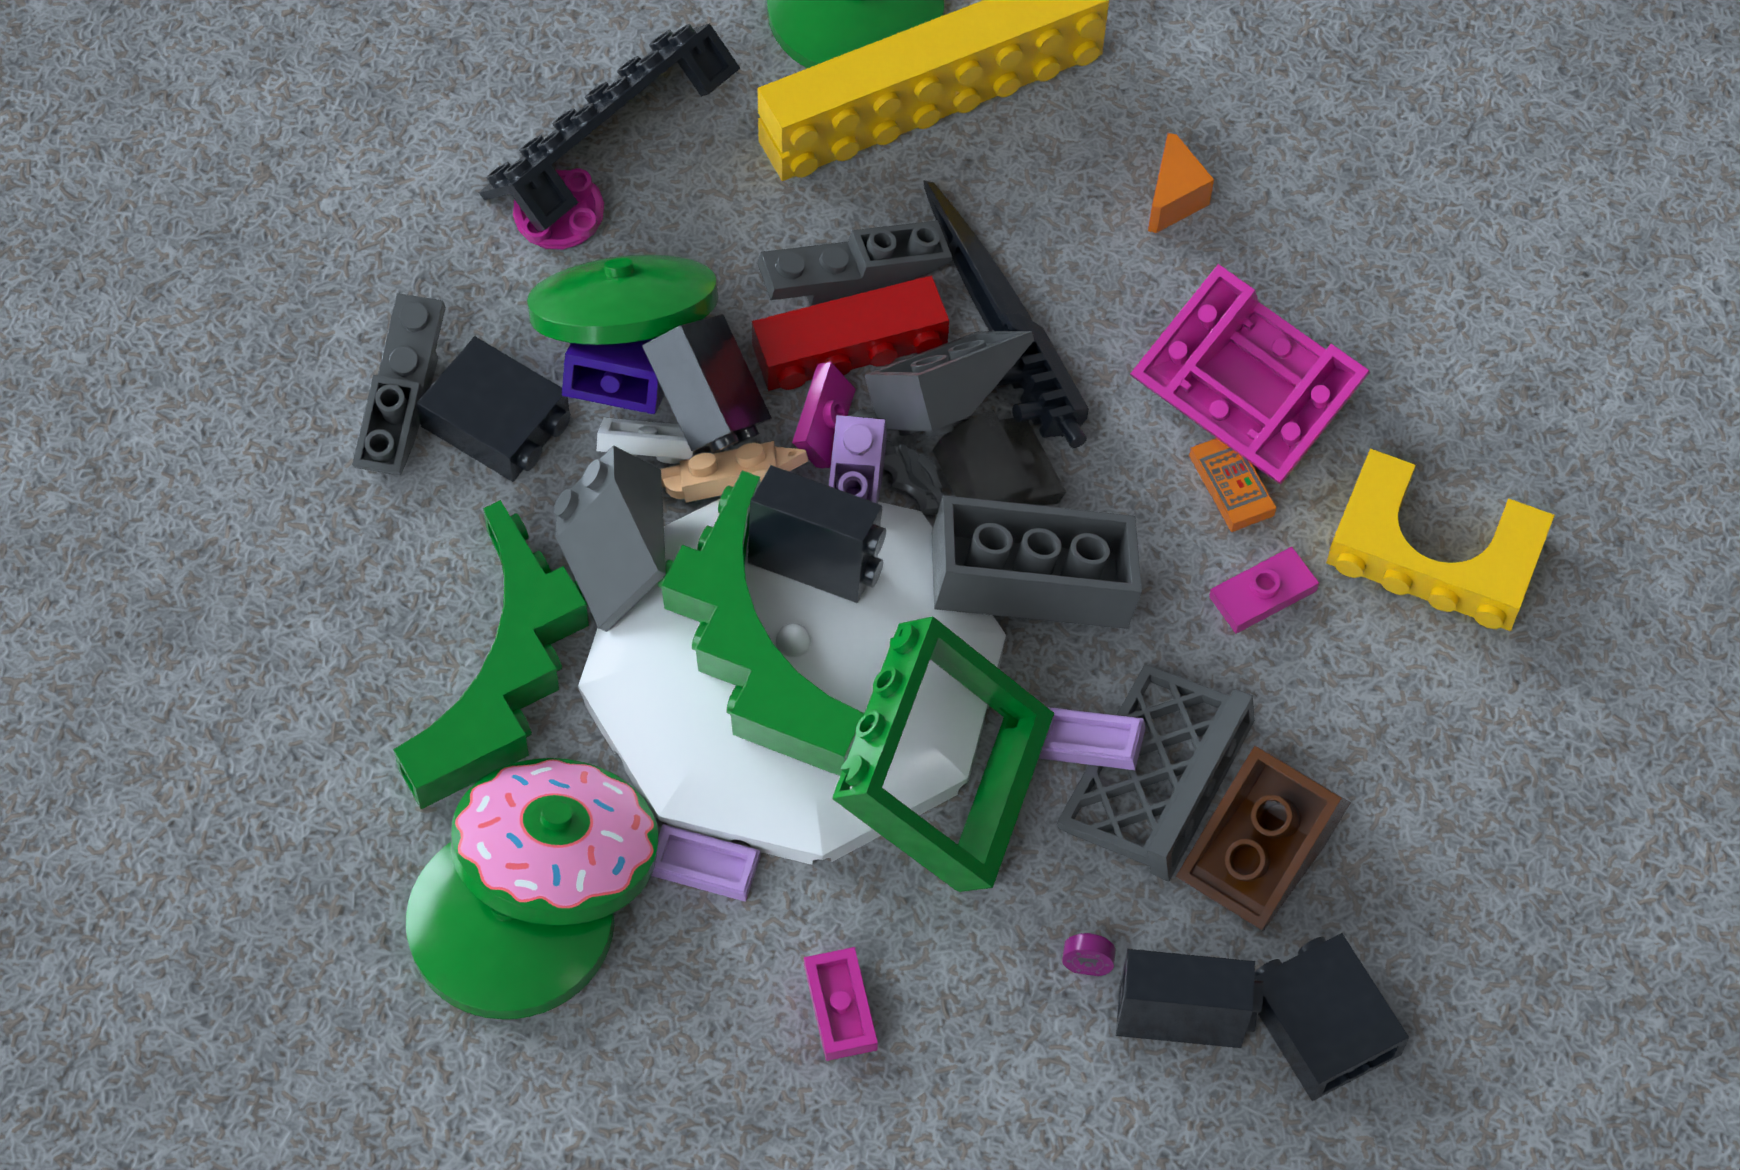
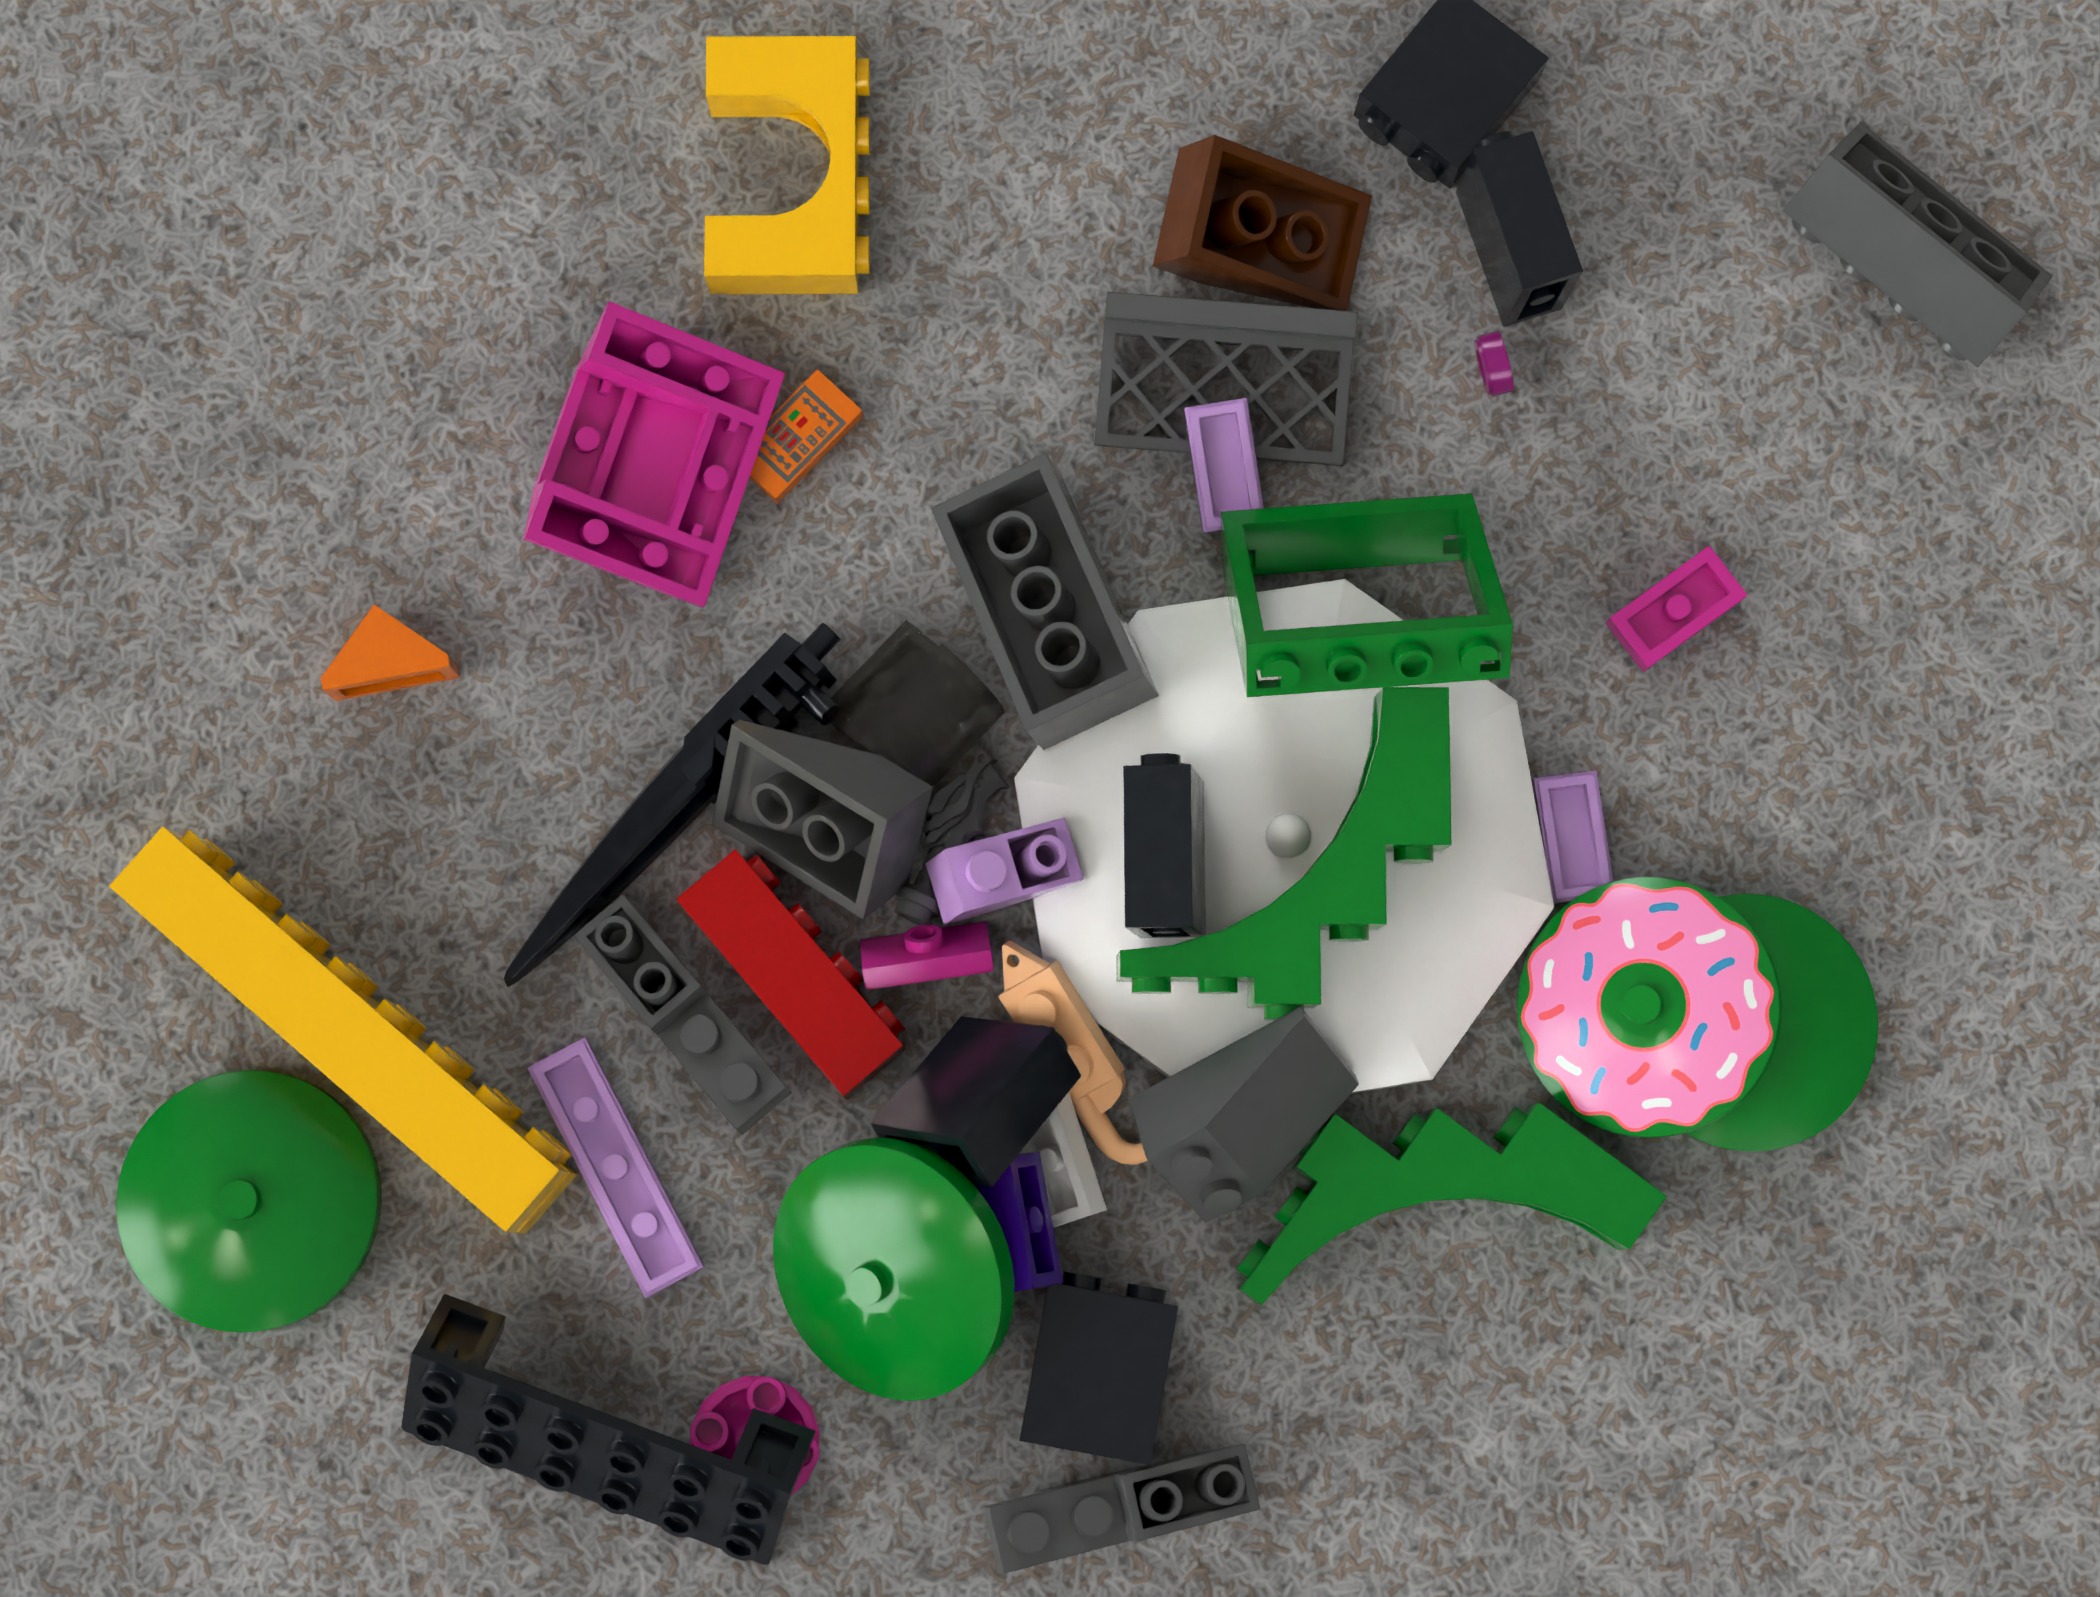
camera: 115 degrees left, 20 degrees up
(774, 200) = (616, 1167): none -> lavender tile
(1263, 590) = (931, 347): dark pink plate -> none

